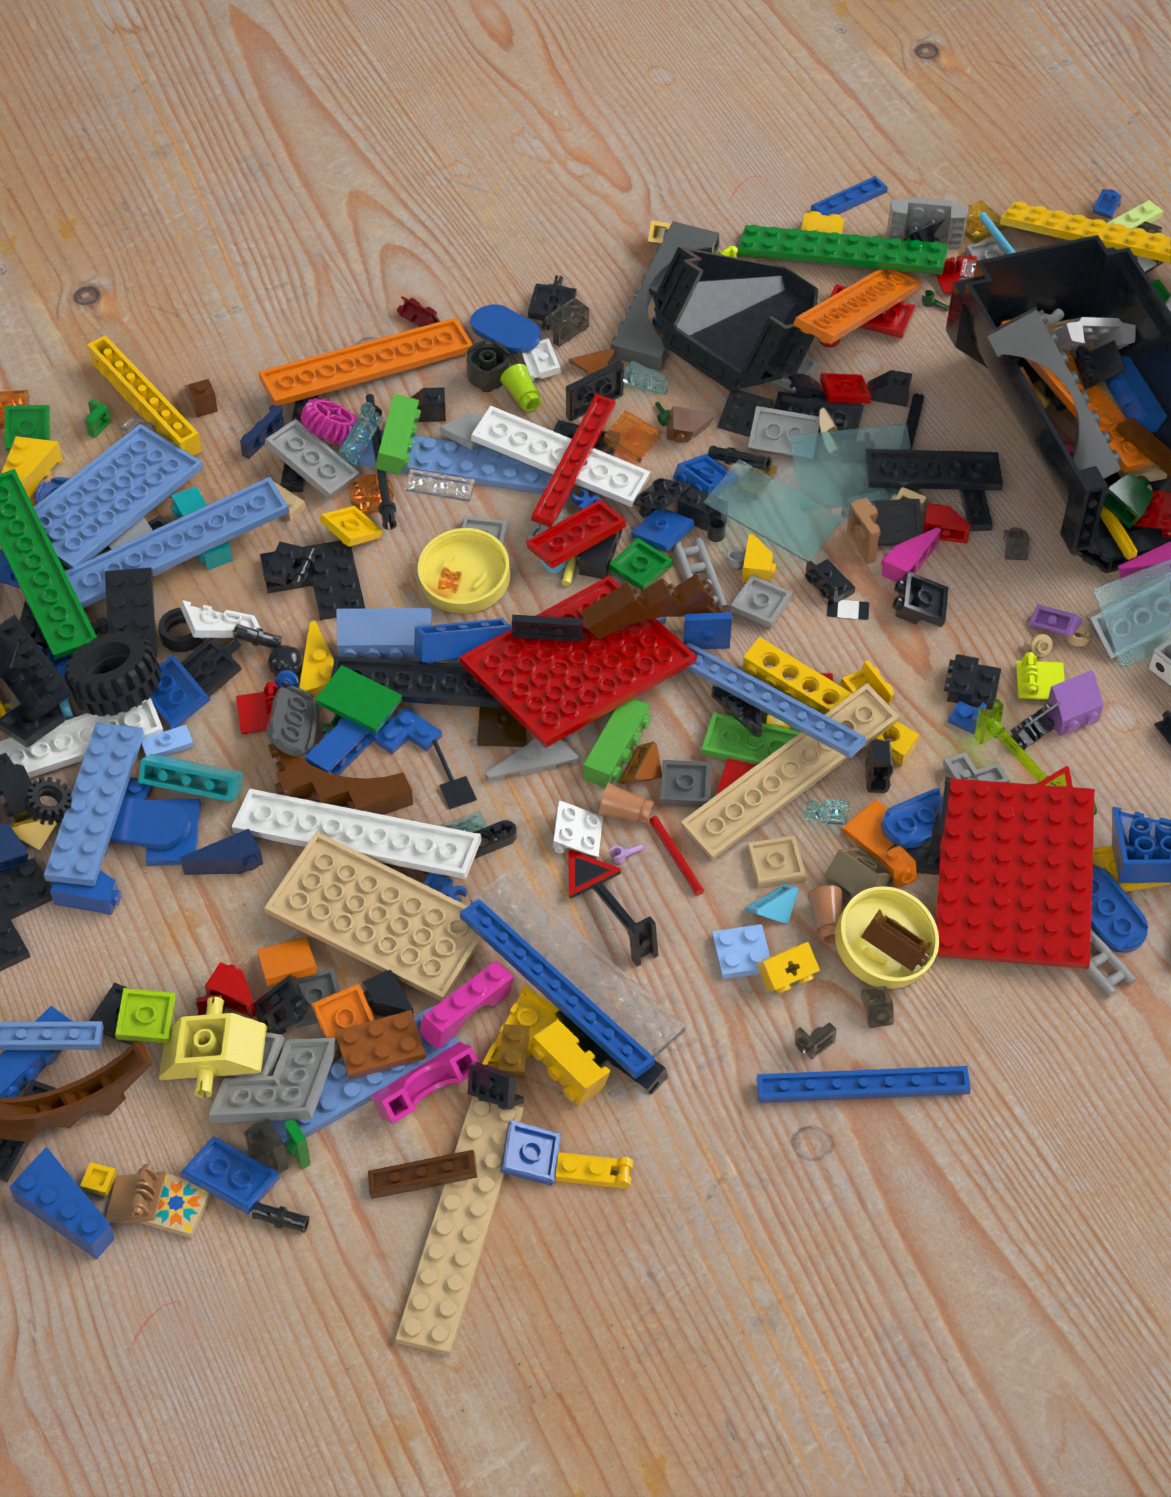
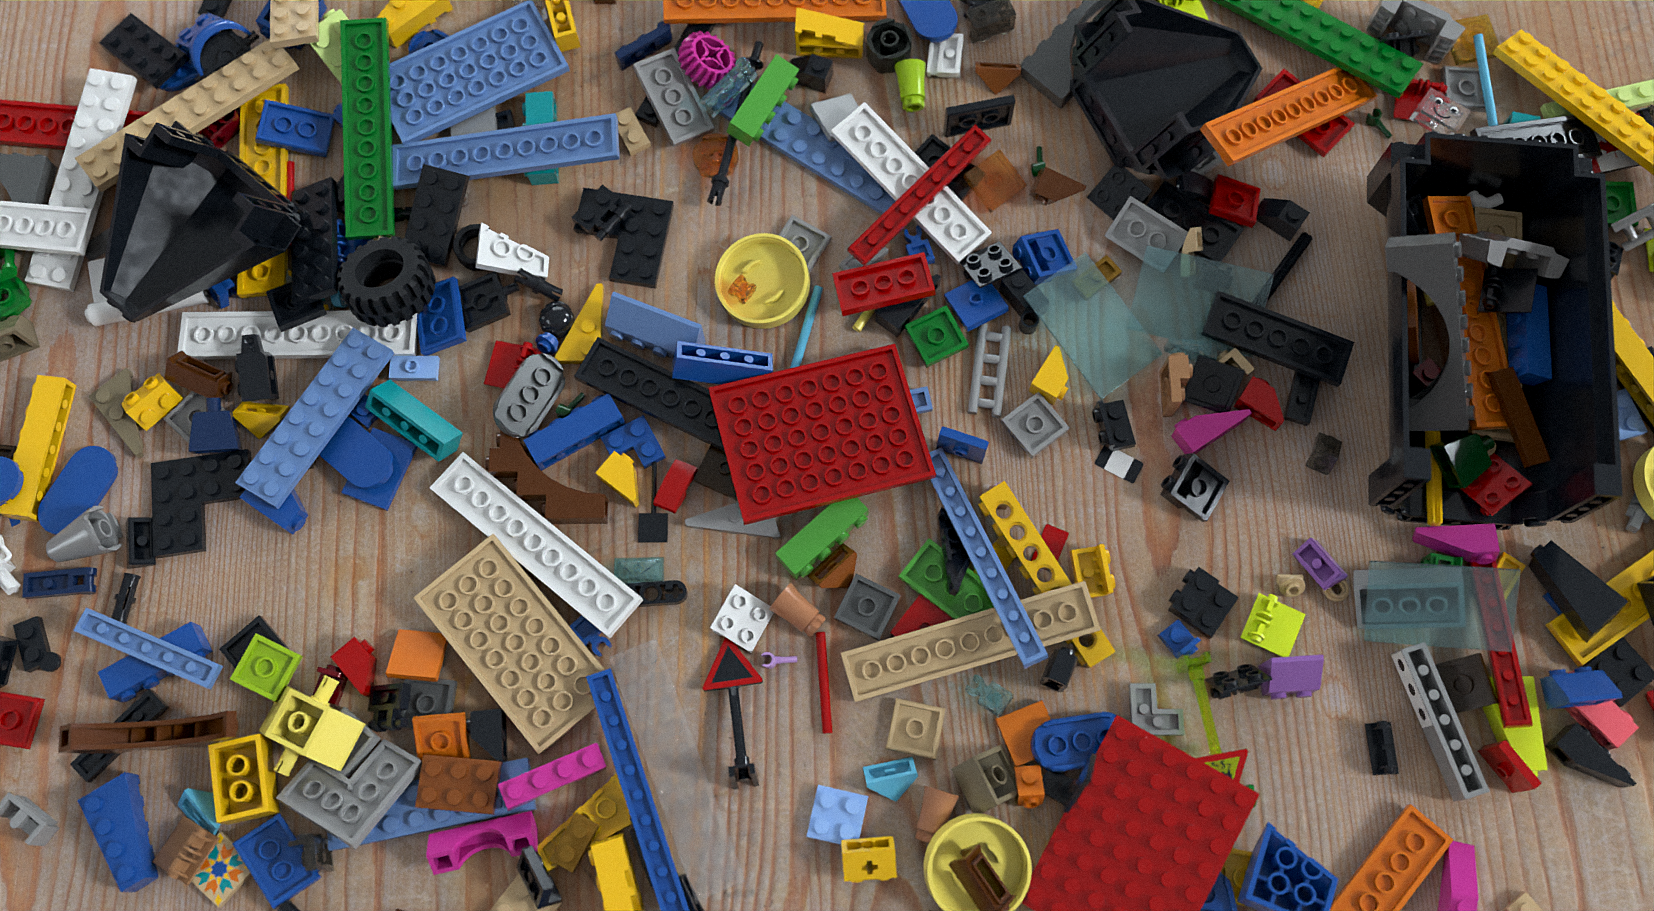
camera: 25 degrees right, 20 degrees up
(51, 789) = (265, 388): black tyre -> none
(98, 1179) = (164, 815): yellow plate -> none
(130, 1158) = (199, 808): none -> medium azure slope
(167, 1115) = (243, 779): none -> yellow brick
(227, 856) = (420, 518): dark blue slope -> none
(297, 1144) = (340, 862): green plate -> none
(351, 526) = (678, 189): yellow plate -> none
(358, 699) = (596, 397): green tile -> none
(411, 759) = (620, 476): none -> yellow slope
(428, 371) = (828, 35): none -> yellow wedge
(440, 485) = (784, 170): clear plate -> none
(463, 750) = (674, 486): none -> red slope
(519, 588) = (807, 325): none -> medium azure axle
(547, 628) = (803, 389): black plate -> none
(645, 379) = (1035, 113): clear light blue slope -> none
(658, 600) = (922, 404): reddish brown arch -> none
(731, 456) = (1082, 242): black pin -> none
(735, 559) = (1035, 365): light grey hinge -> none
(1107, 203) = (1623, 64): blue bracket -> none

